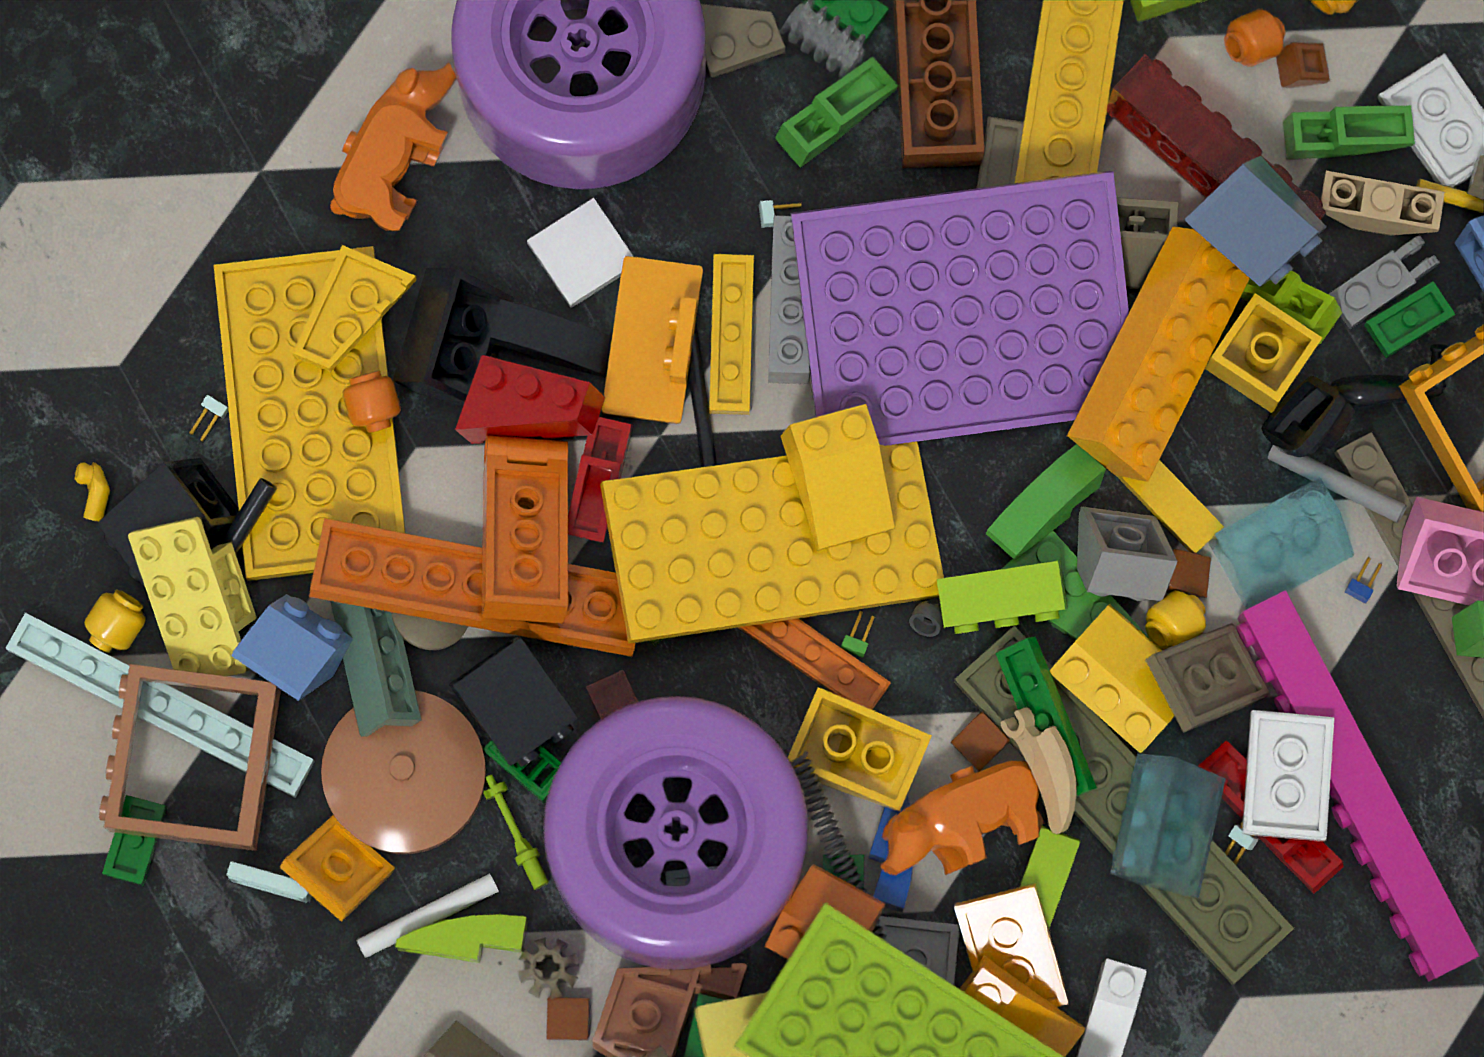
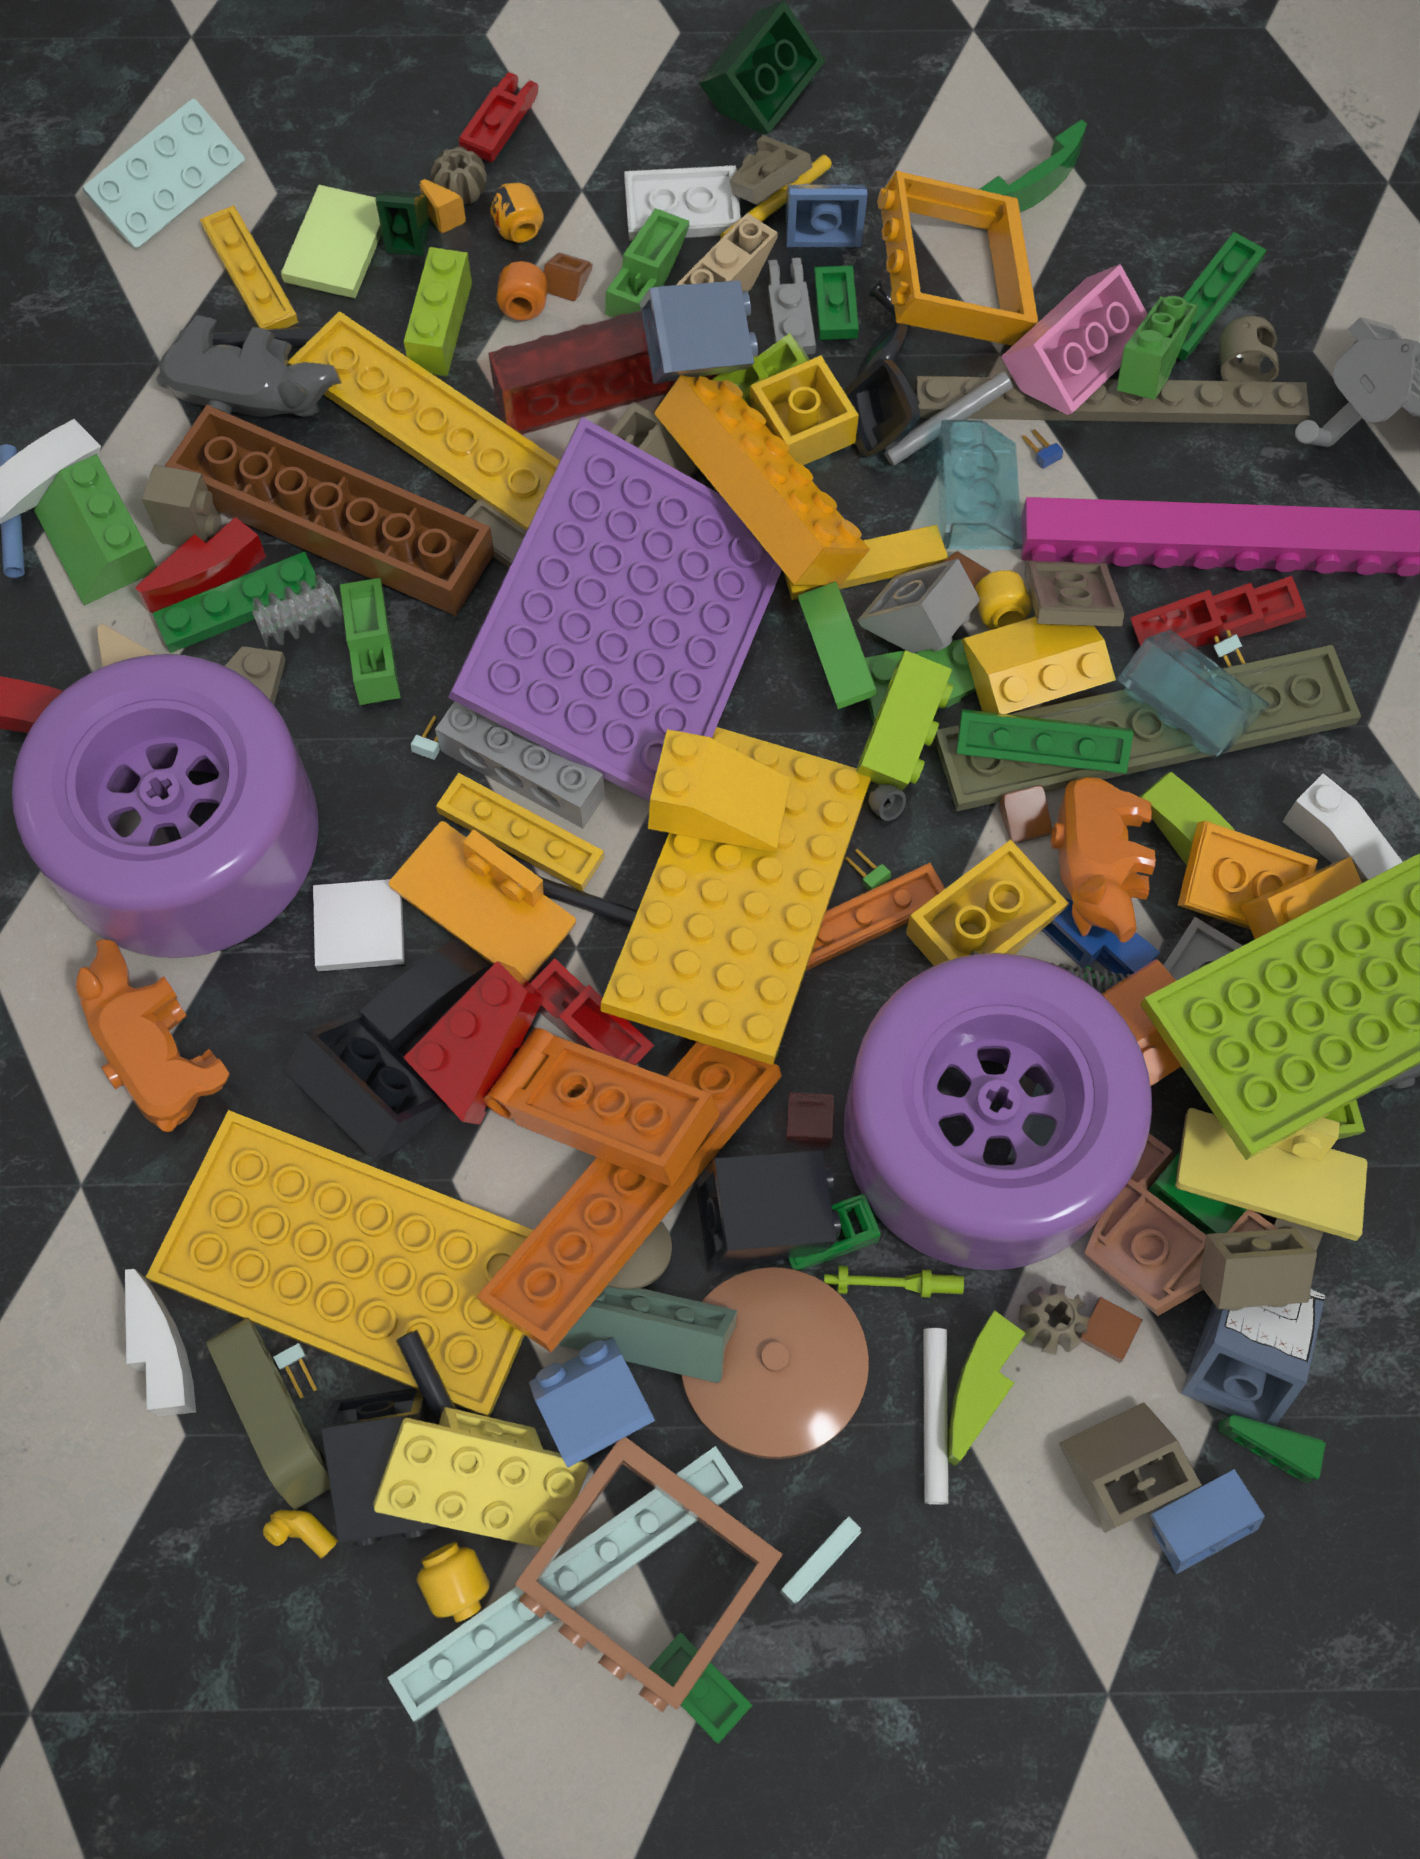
camera: 60 degrees left, 10 degrees down
(162, 414) = (269, 1414): none -> olive beam
(169, 306) = (157, 1348): none -> white slope
(337, 868) = (844, 1481): light orange tile -> none
(349, 306) = (275, 1161): yellow wing -> none
(371, 401) = (384, 1187): orange head -> none
(1049, 764) = (1093, 755): tan piece -> none
(1288, 775) = (1197, 574): white tile -> none

